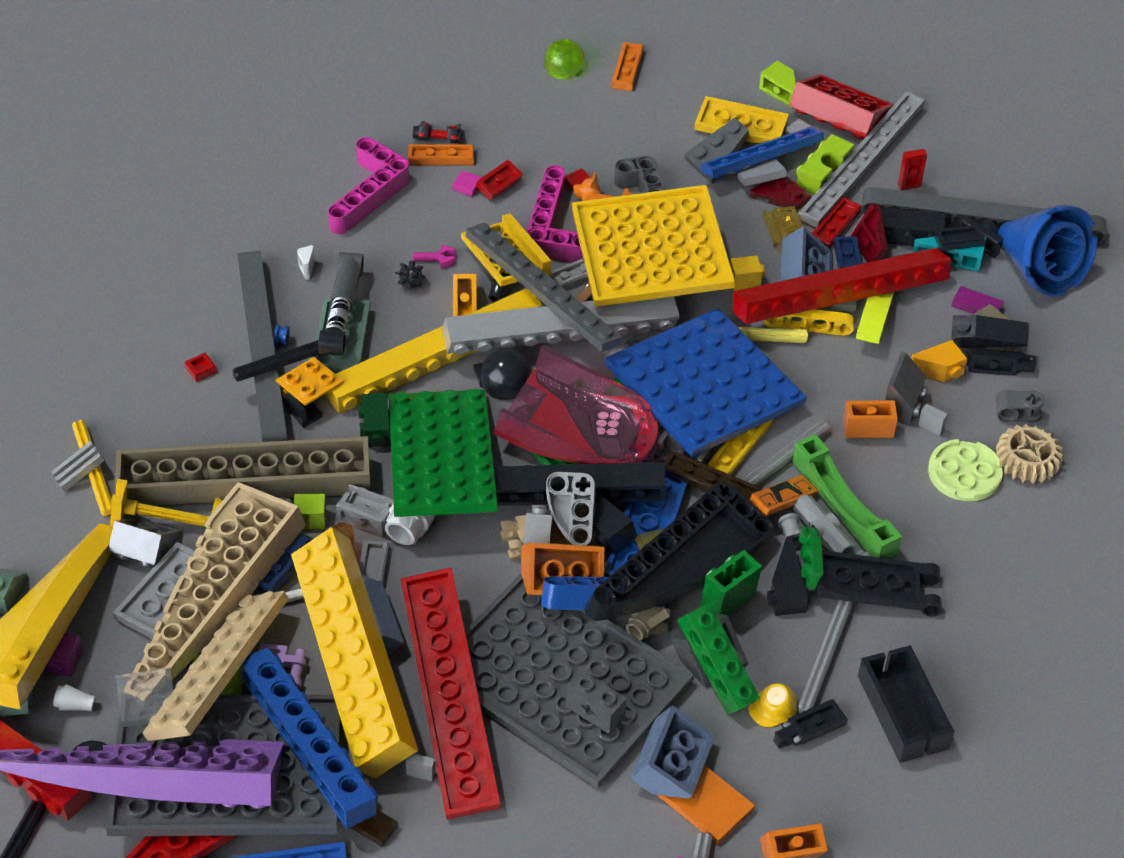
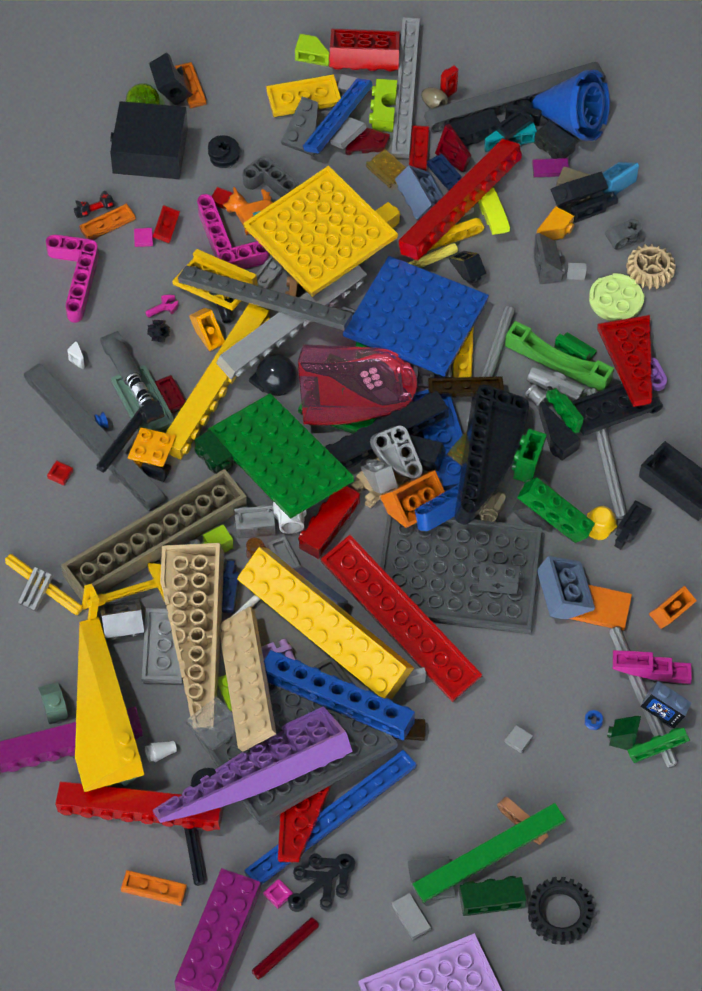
camera: 30 degrees left, 10 degrees up
(376, 339) = (170, 393): none -> dark red plate
(451, 547) = (329, 521): none -> red brick
(539, 93) = (149, 140): none -> black container
(600, 48) = (169, 80): none -> black piece
(613, 137) = (223, 151): none -> black piece
(782, 495) = (518, 374): orange tile -> none
(806, 360) = (468, 265): none -> black slope
(870, 419) = (538, 291): orange brick -> none
(875, 498) = (574, 347): none -> green panel
(887, 178) = (434, 97): none -> dark tan animal
(936, 534) = (630, 352): none -> red wing
(954, 572) = (657, 375): none -> medium lavender plate
(999, 277) = (554, 140): none -> pearl dark grey piece
(1053, 347) = (620, 176): none -> dark azure slope

